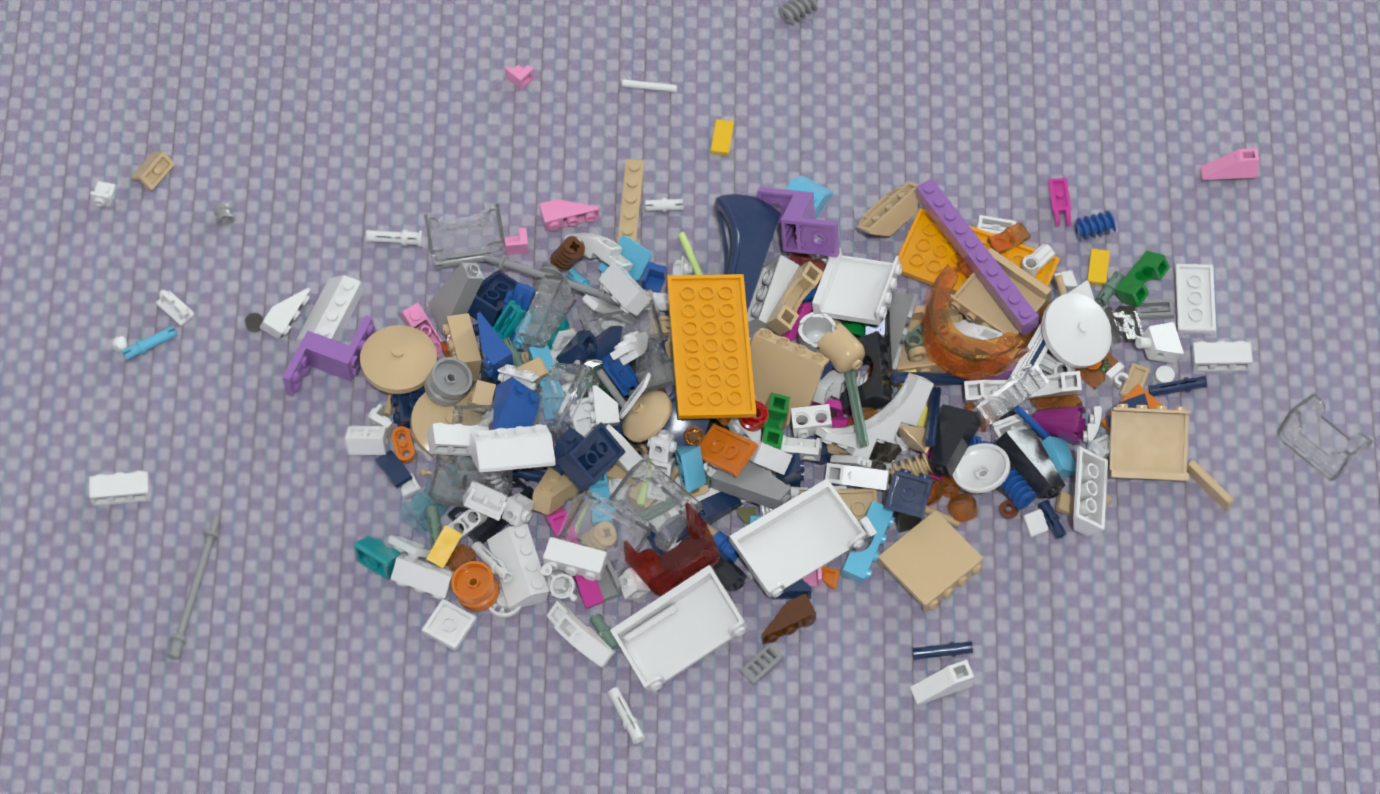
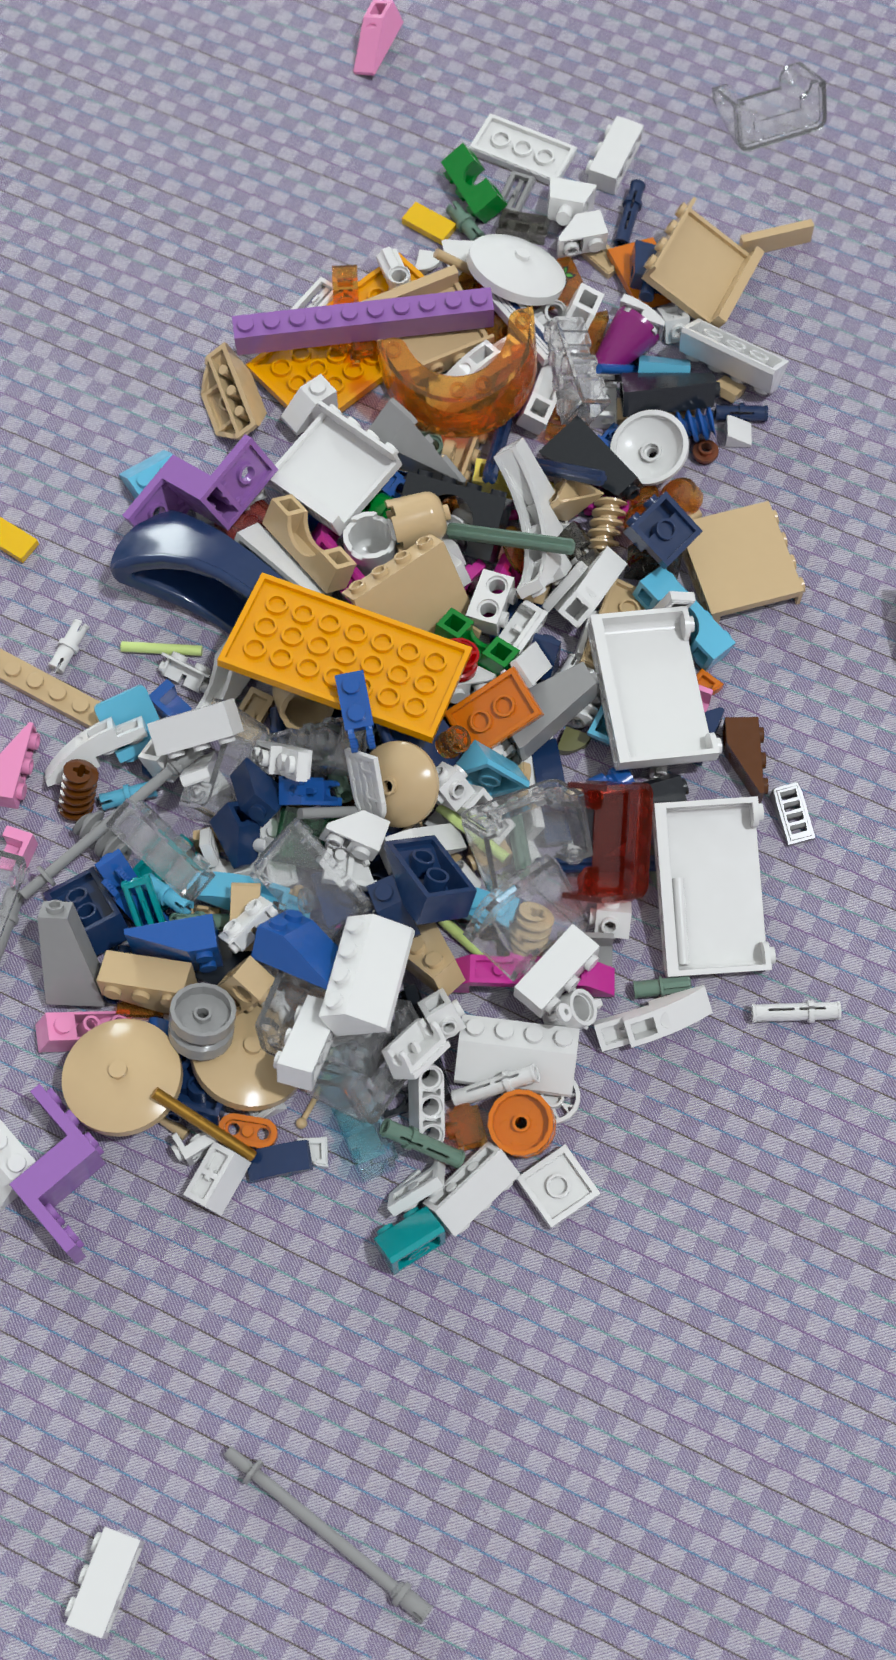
camera: 65 degrees left, 5 degrees up
(391, 414) = (203, 1124): none -> pearl gold bar
(444, 546) = (449, 1138): yellow tile -> none
(672, 364) = (355, 707): none -> blue hinge
(909, 256) = (304, 406): none -> white slope
(943, 650) = (867, 593): dark blue pin -> none
(1060, 200) = (320, 221): dark pink hinge -> none
(1094, 224) = (376, 199): blue piece -> none
(1115, 374) = (584, 265): white tile -> none
(1136, 361) = (583, 235): none -> white slope
(1164, 374) = (611, 220): white tile -> none

